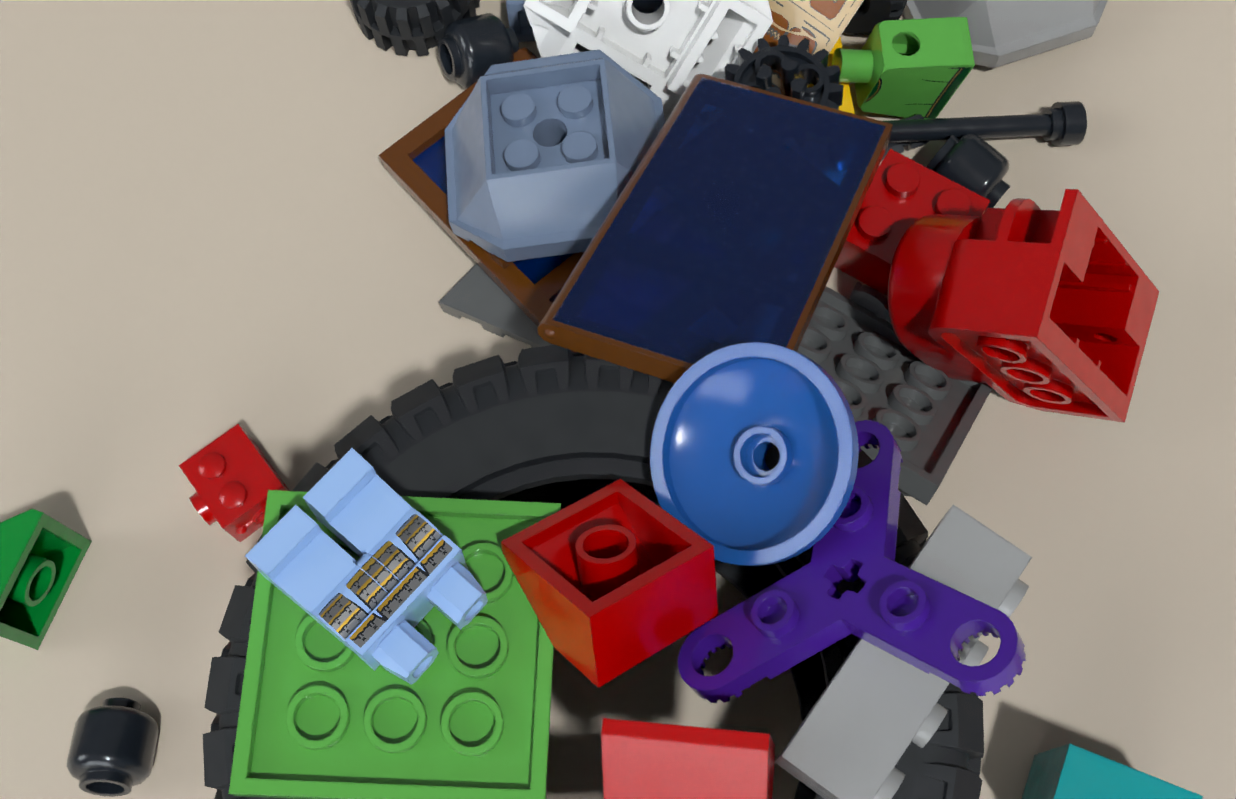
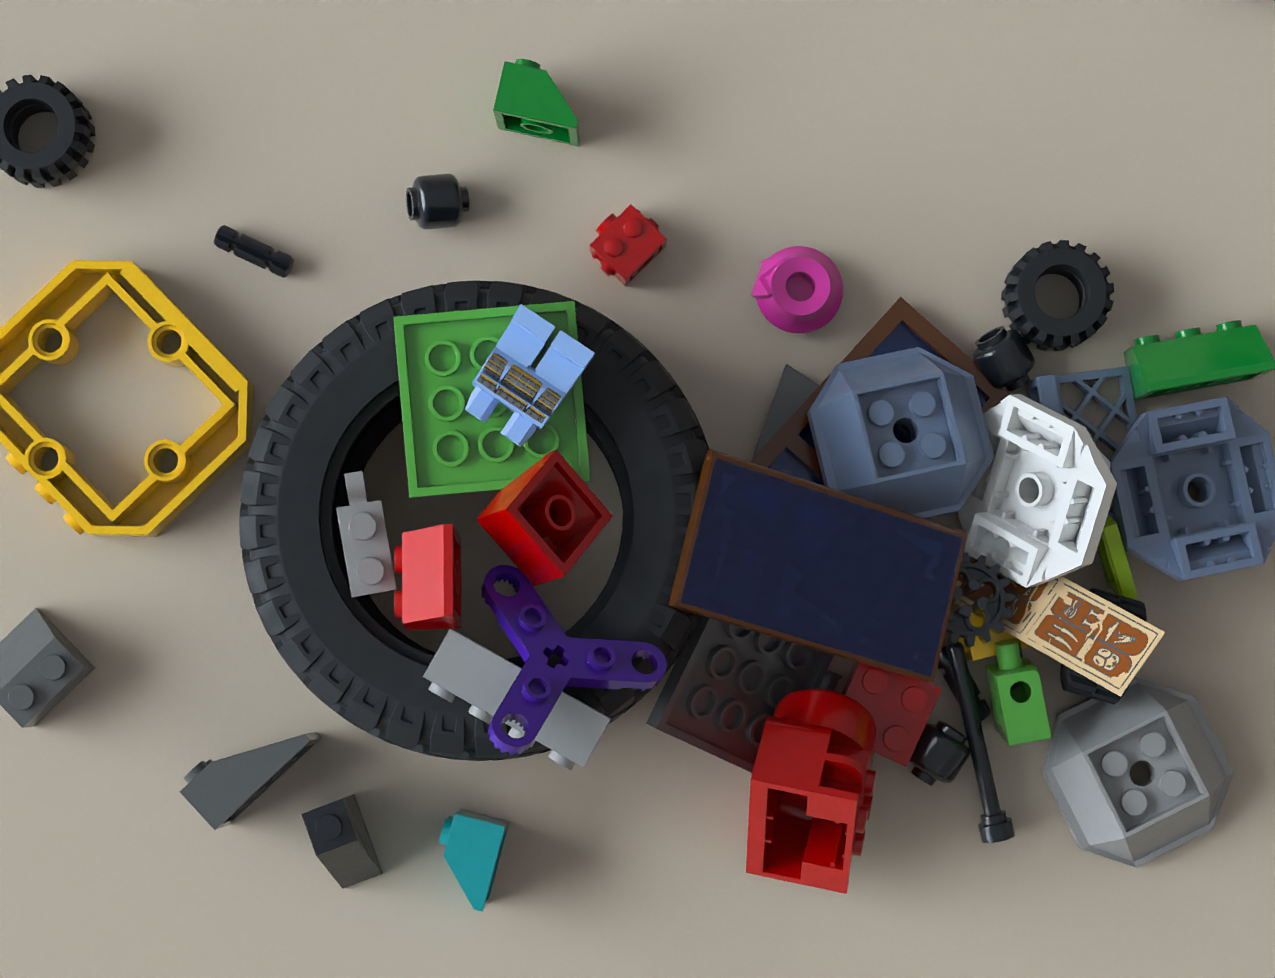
camera: 80 degrees right, 15 degrees up
(345, 277) = (798, 289): none -> dark pink piece
(715, 443) = (624, 575): blue dish -> none

